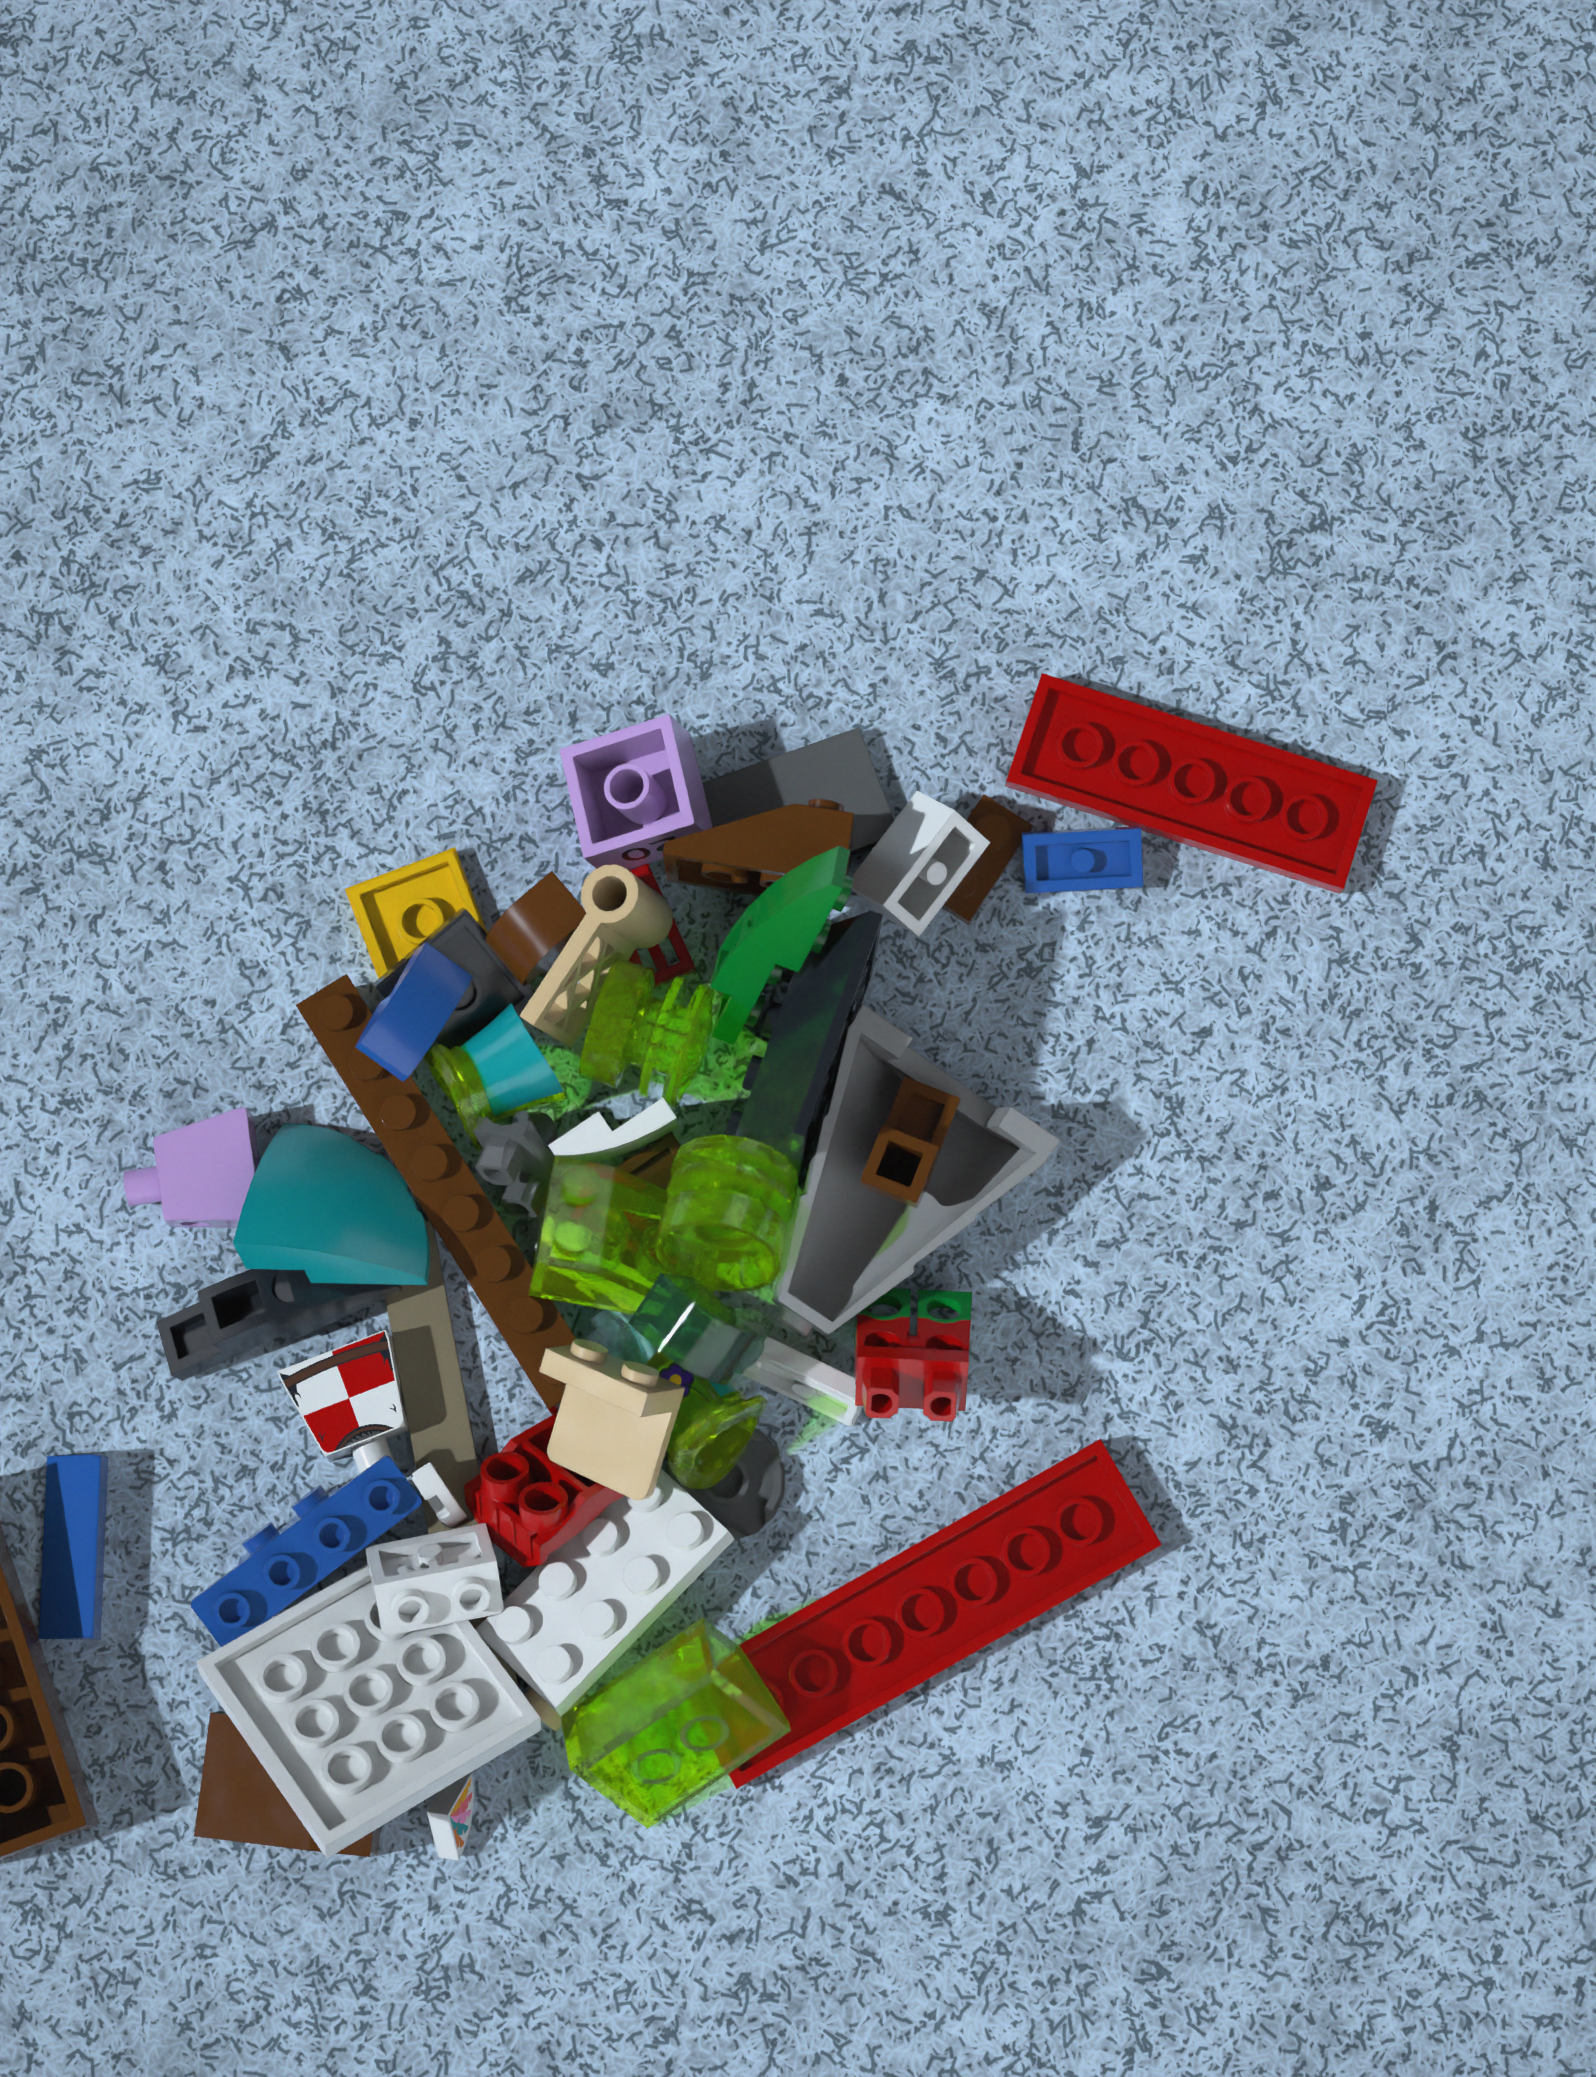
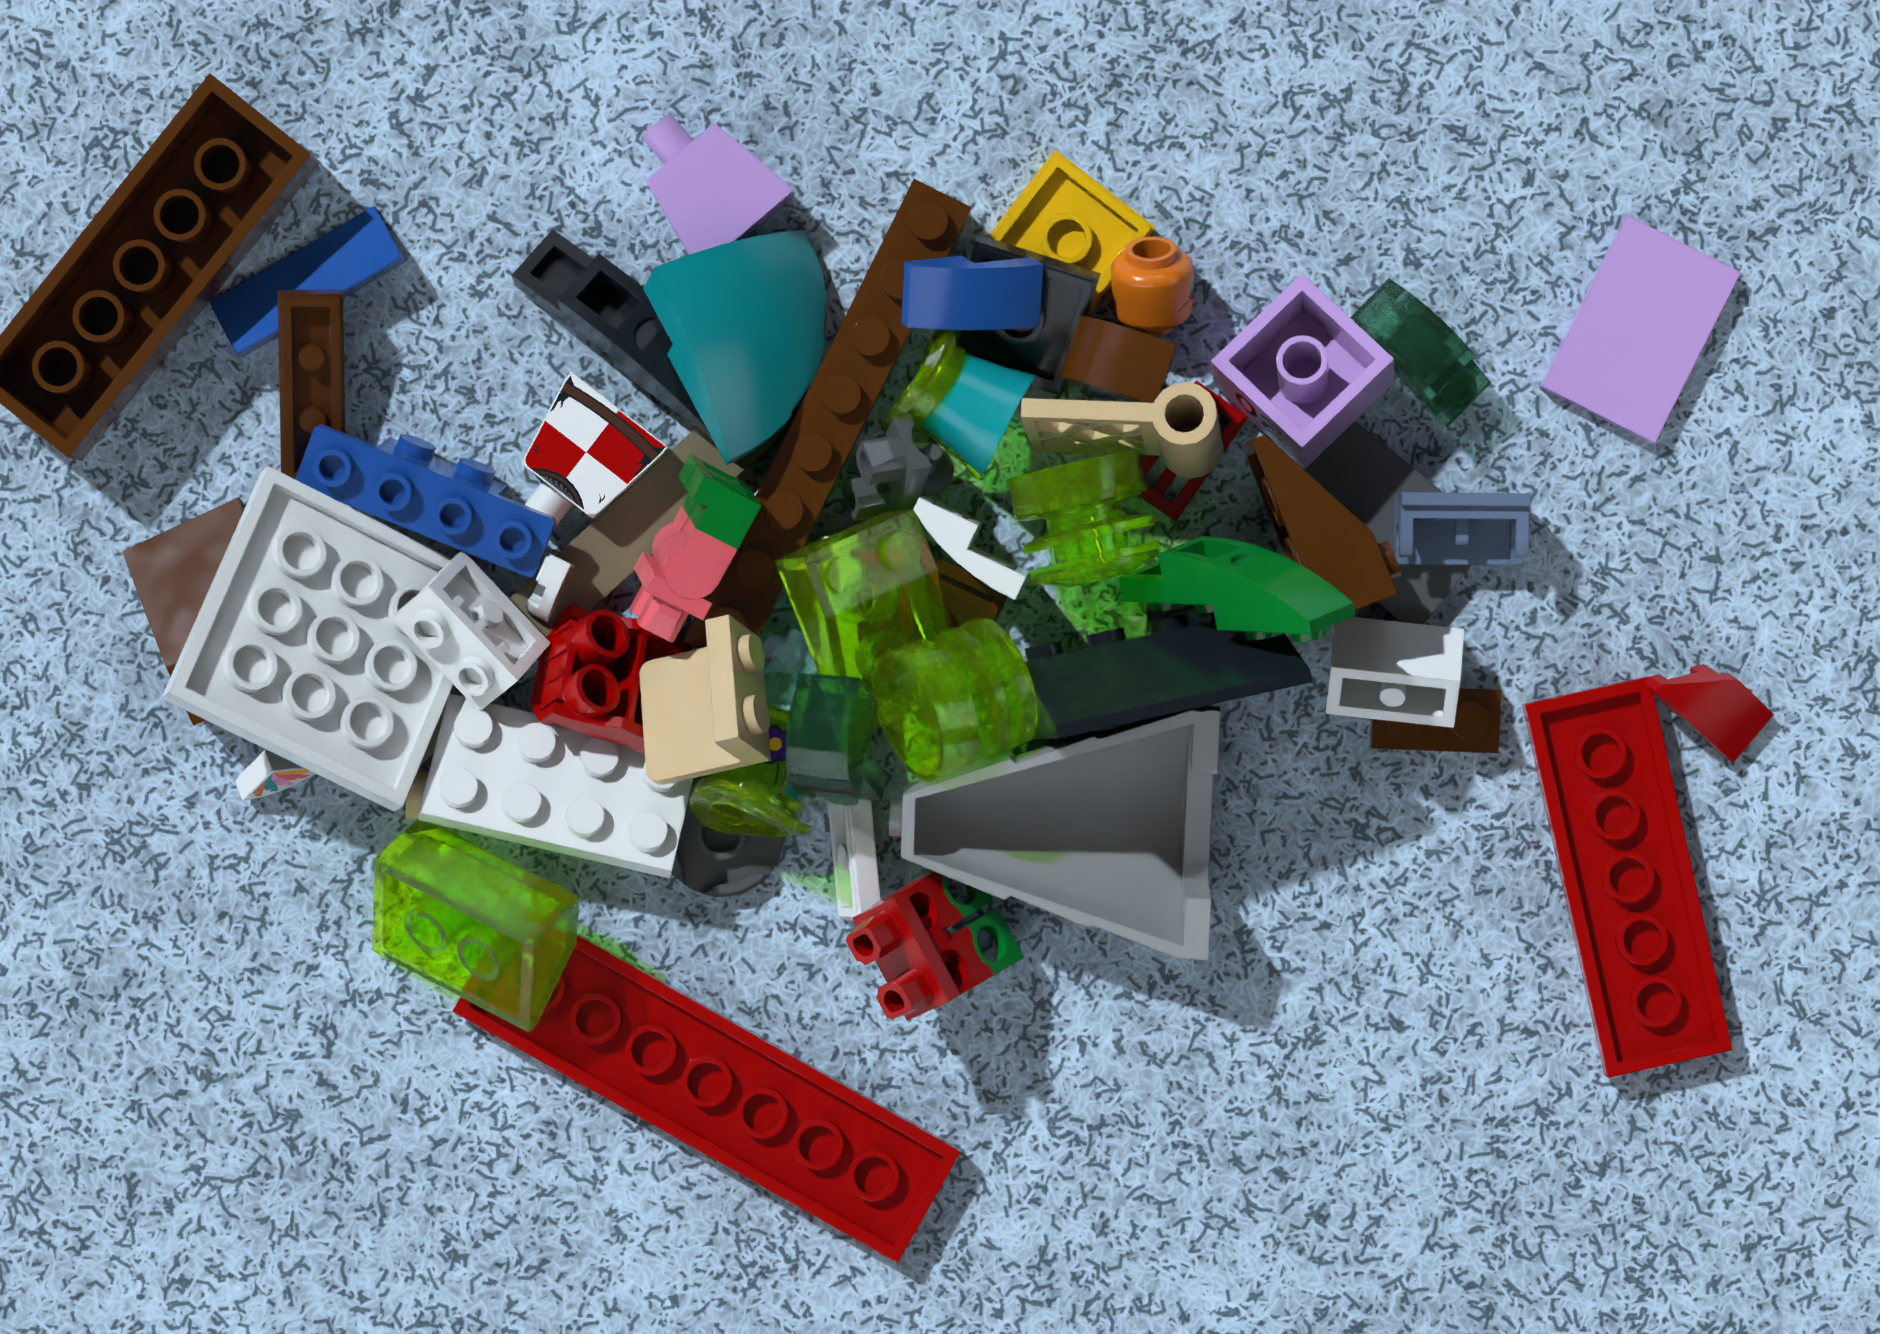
camera: 55 degrees right, 10 degrees up
(141, 1585) = (309, 369): none -> reddish brown tile
(480, 1356) = (693, 549): none -> coral hips
(495, 871) = (1152, 286): none -> orange head
(684, 688) = (1424, 350): none -> clear green brick
(766, 527) = (1639, 329): none -> lavender tile
(836, 744) = (1461, 528): none -> sand blue hinge
(910, 1143) = (1123, 824): reddish brown brick -> none
(1082, 859) = (1492, 819): blue plate -> none
(1096, 636) = (1714, 706): none -> red slope

